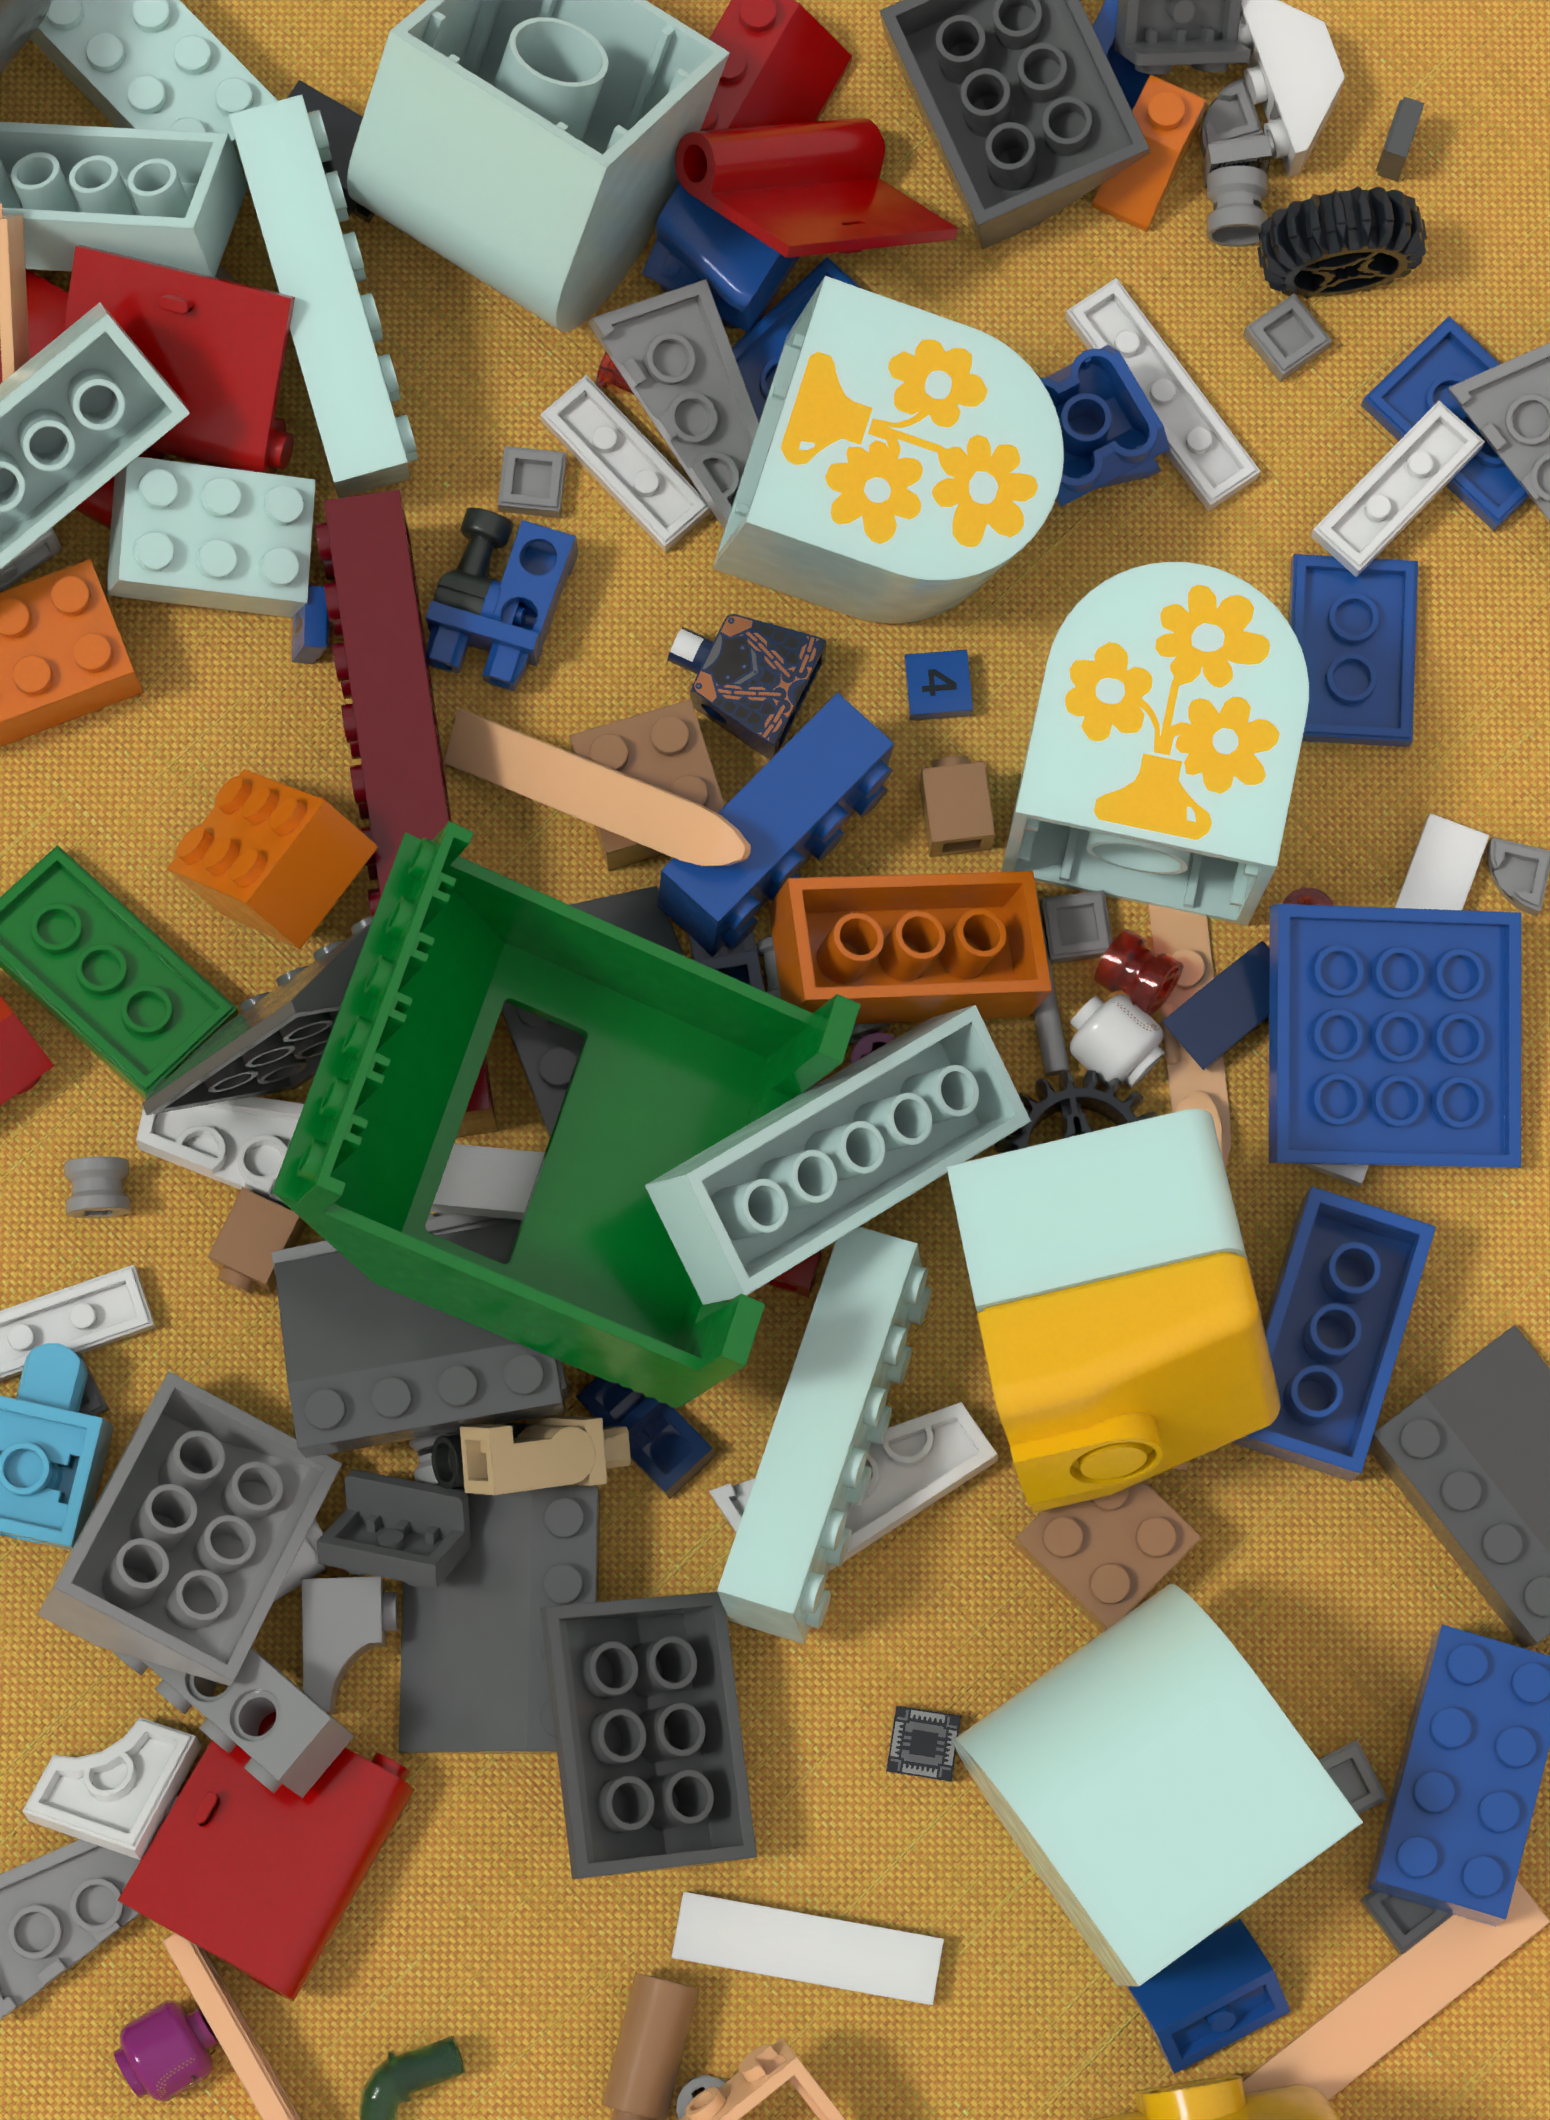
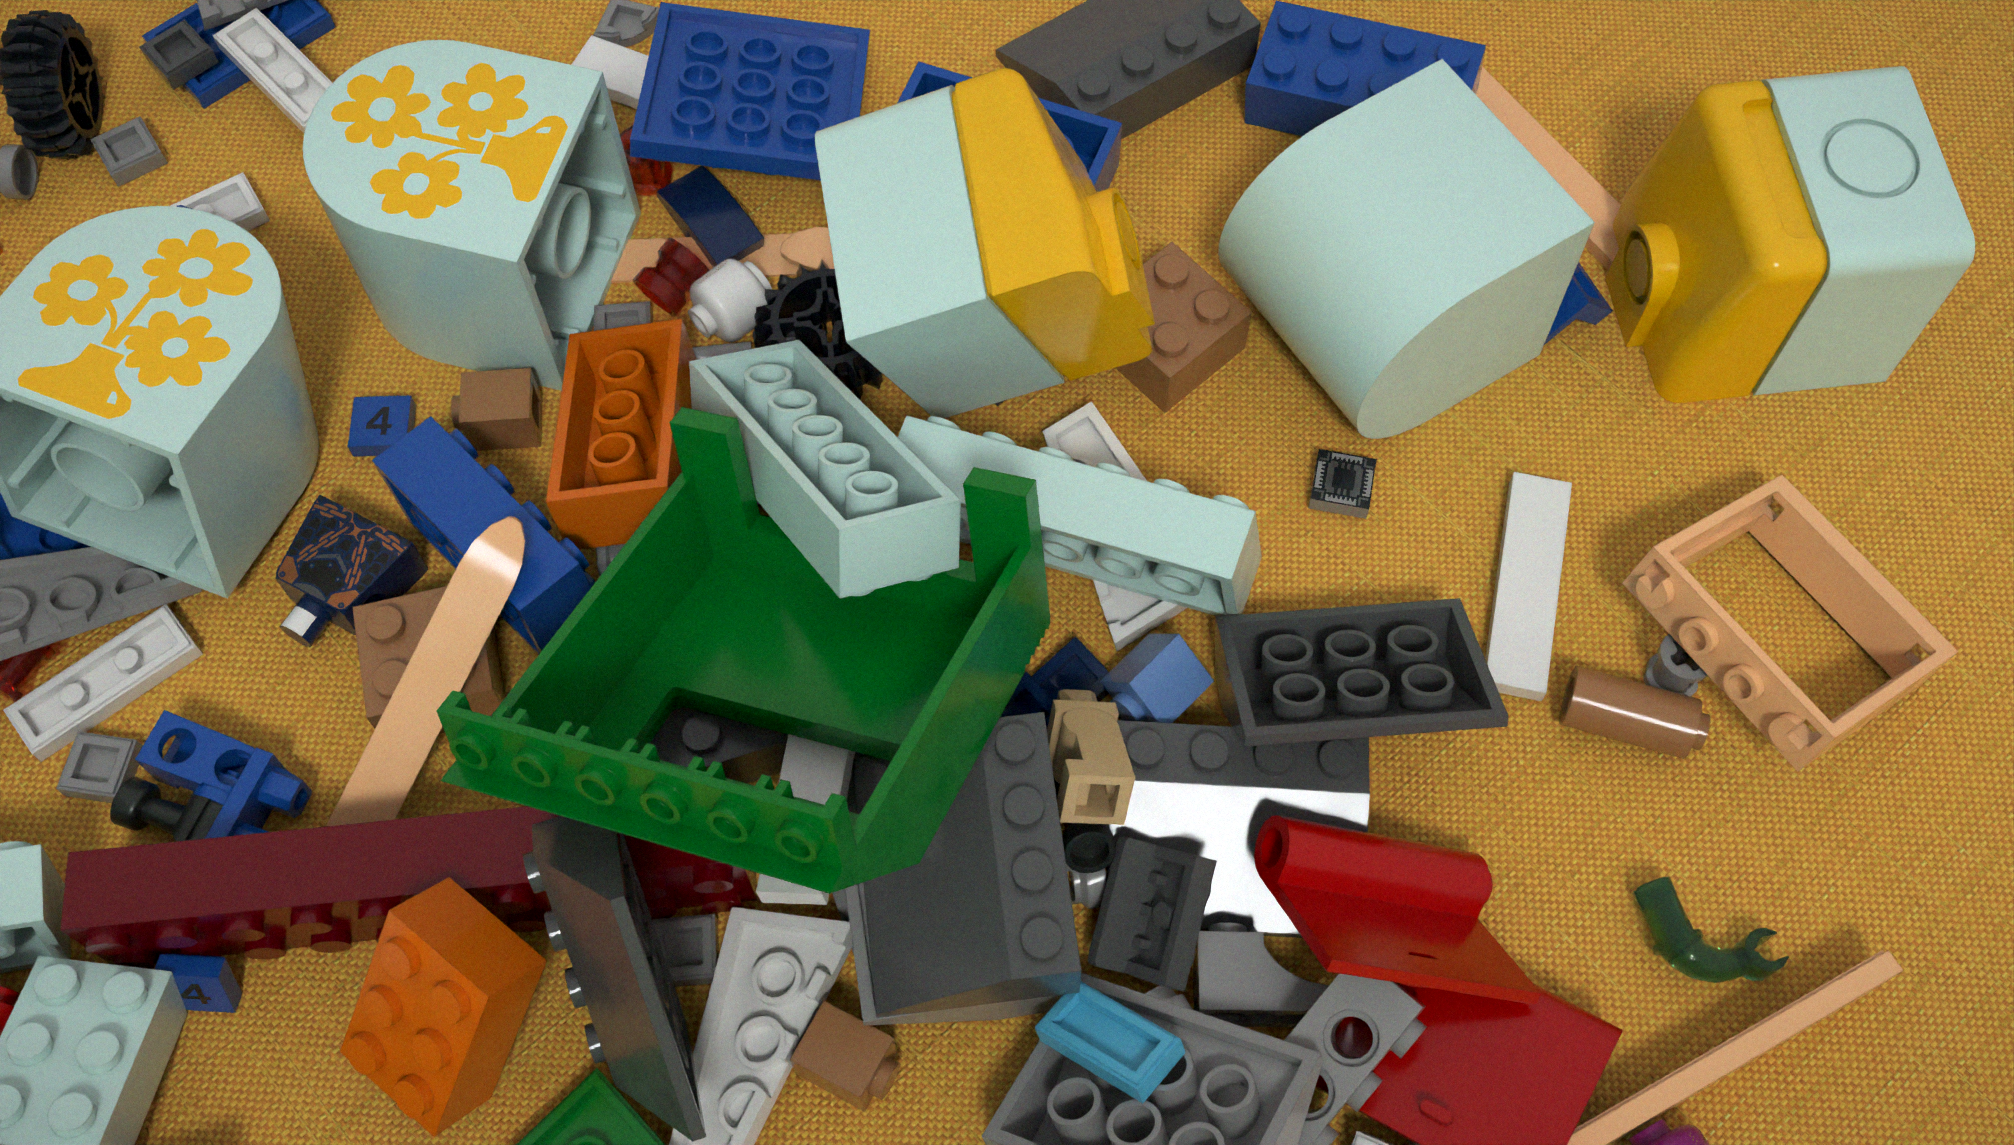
camera: 85 degrees left, 15 degrees down
(256, 1488) = (1110, 1041): none -> medium azure tile
(389, 1764) = (1388, 908): none -> red door
(655, 1532) = (1156, 680): none -> medium blue brick
(1414, 366) = (179, 54): none -> dark grey tile

